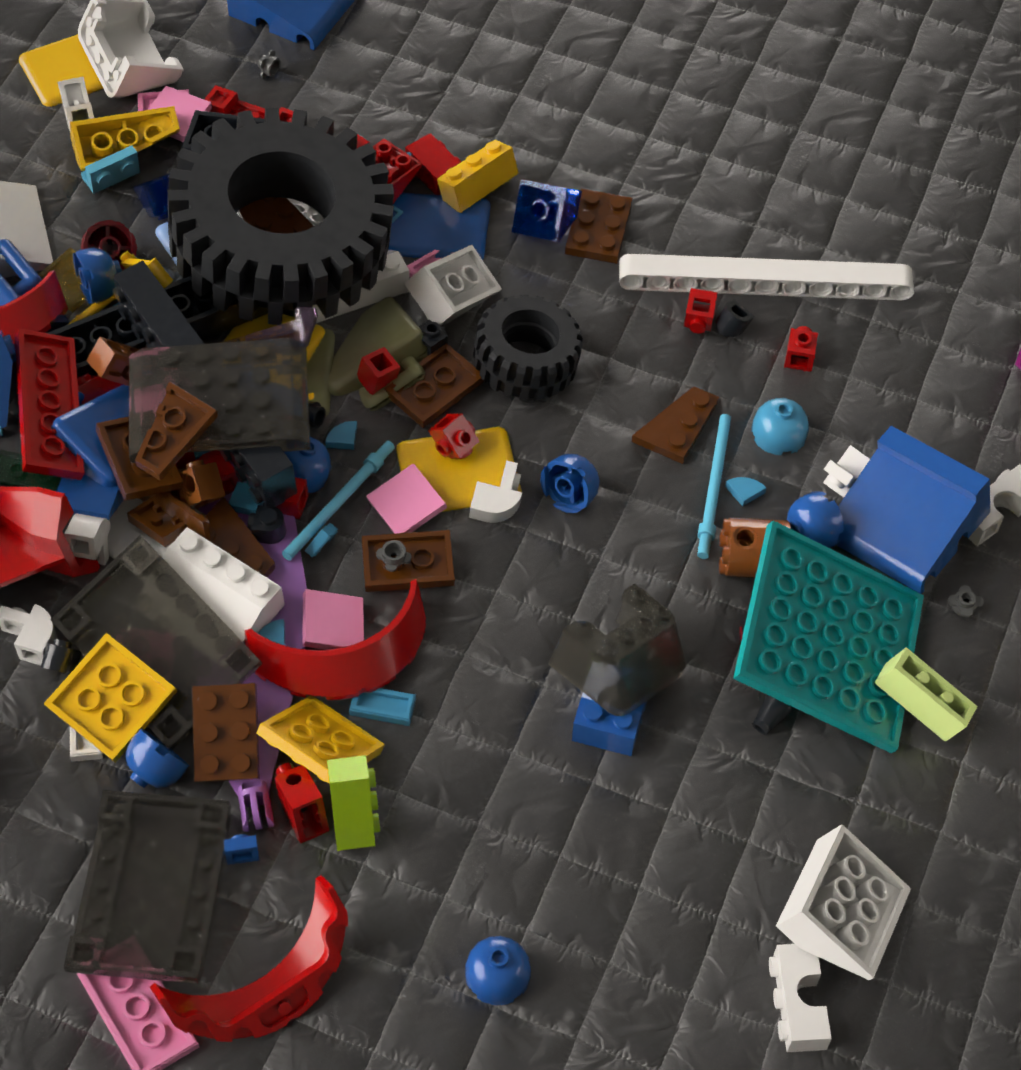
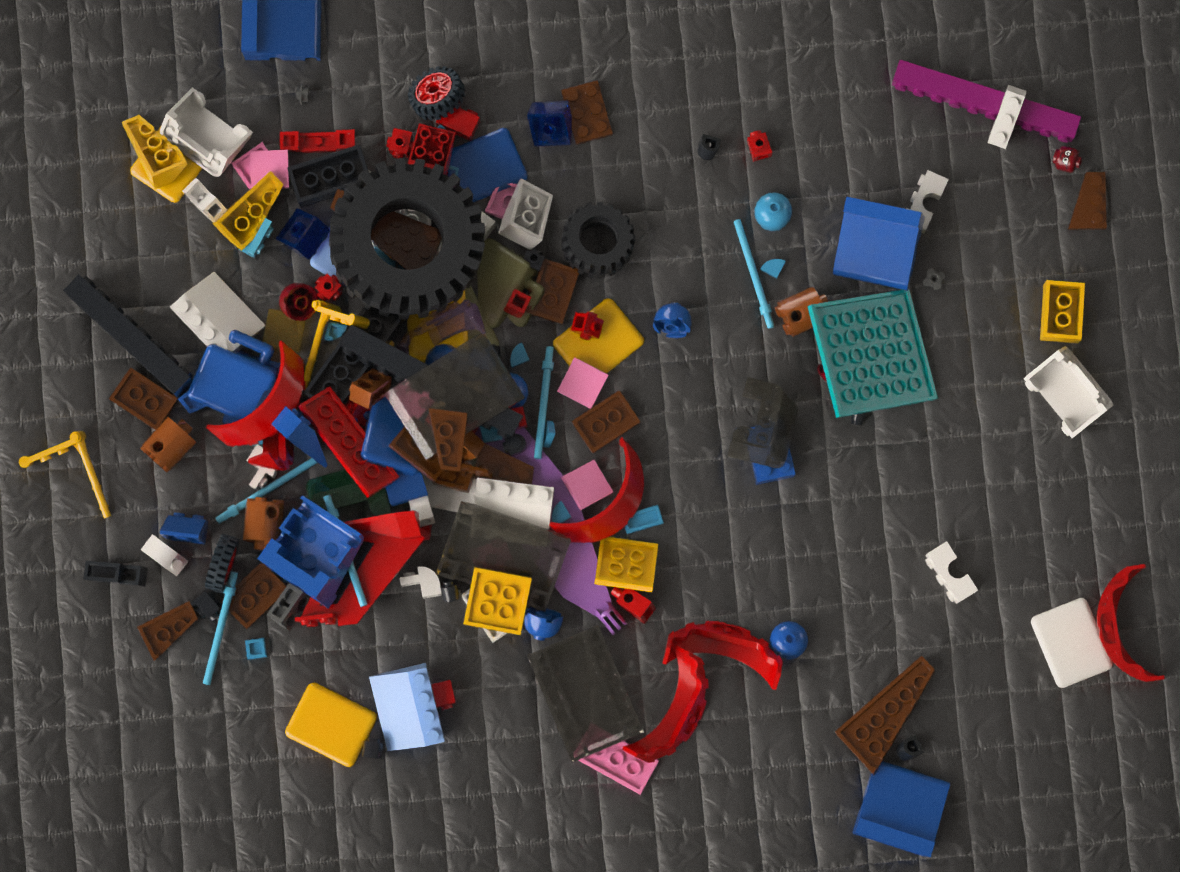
camera: 25 degrees left, 25 degrees up
(56, 43) = (157, 155): none -> yellow wedge
(96, 273) = (308, 328): blue cylinder -> none
(158, 247) = (331, 294): none -> red brick
(225, 732) = (573, 588): reddish brown plate -> none
(241, 849) = (618, 645): blue plate -> none
(353, 802) = (668, 594): lime brick -> none
(390, 548) = (599, 431): dark grey plate -> none
(397, 920) = (728, 641): none -> red windscreen
(425, 119) = (436, 93): none -> black wheel
(478, 175) = (493, 118): yellow brick -> none
(497, 503) = (637, 357): white brick -> none
(678, 426) = (712, 241): reddish brown wing -> none
(700, 316) = (685, 144): red brick -> none
(766, 276) = (711, 101): white beam -> none
(817, 518) = (827, 278): blue cylinder -> none
(844, 904) = (951, 511): white slope -> none
(845, 471) = (830, 225): white brick -> none
(926, 694) = (940, 360): yellowish green brick -> none

